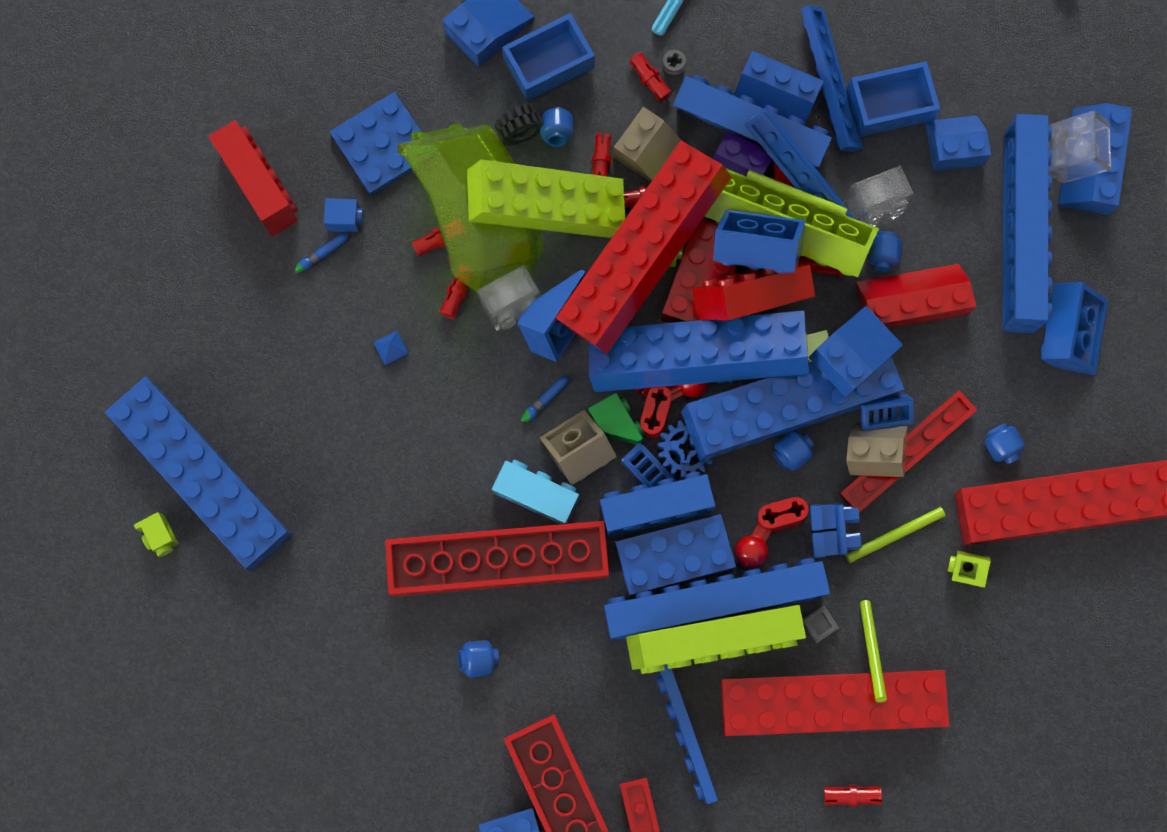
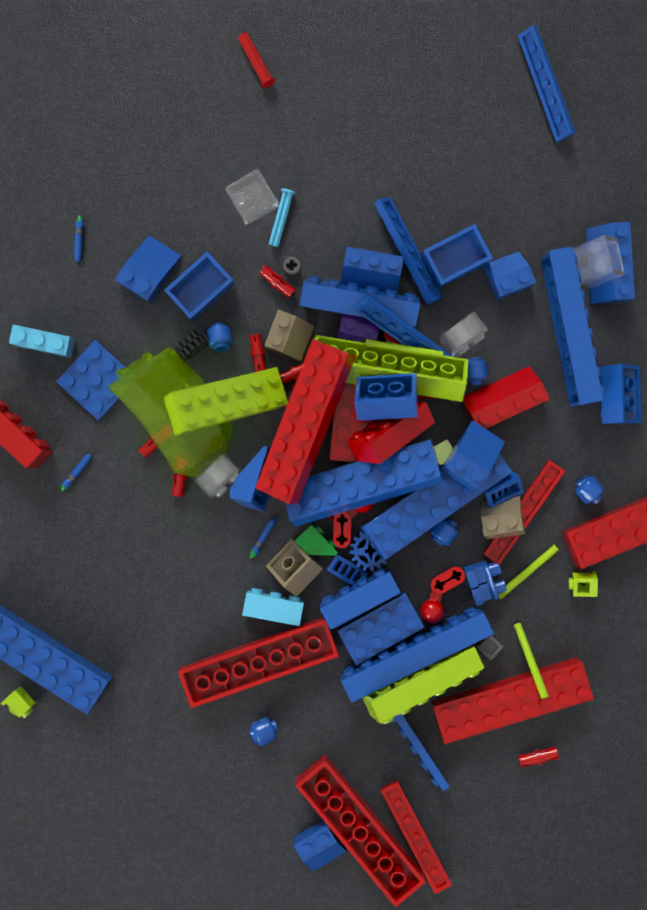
camera: 20 degrees left, 10 degrees up
(326, 76) = (42, 341): none -> medium azure brick
(343, 215) = (83, 442): blue brick -> none
(391, 348) = (144, 528): blue slope -> none

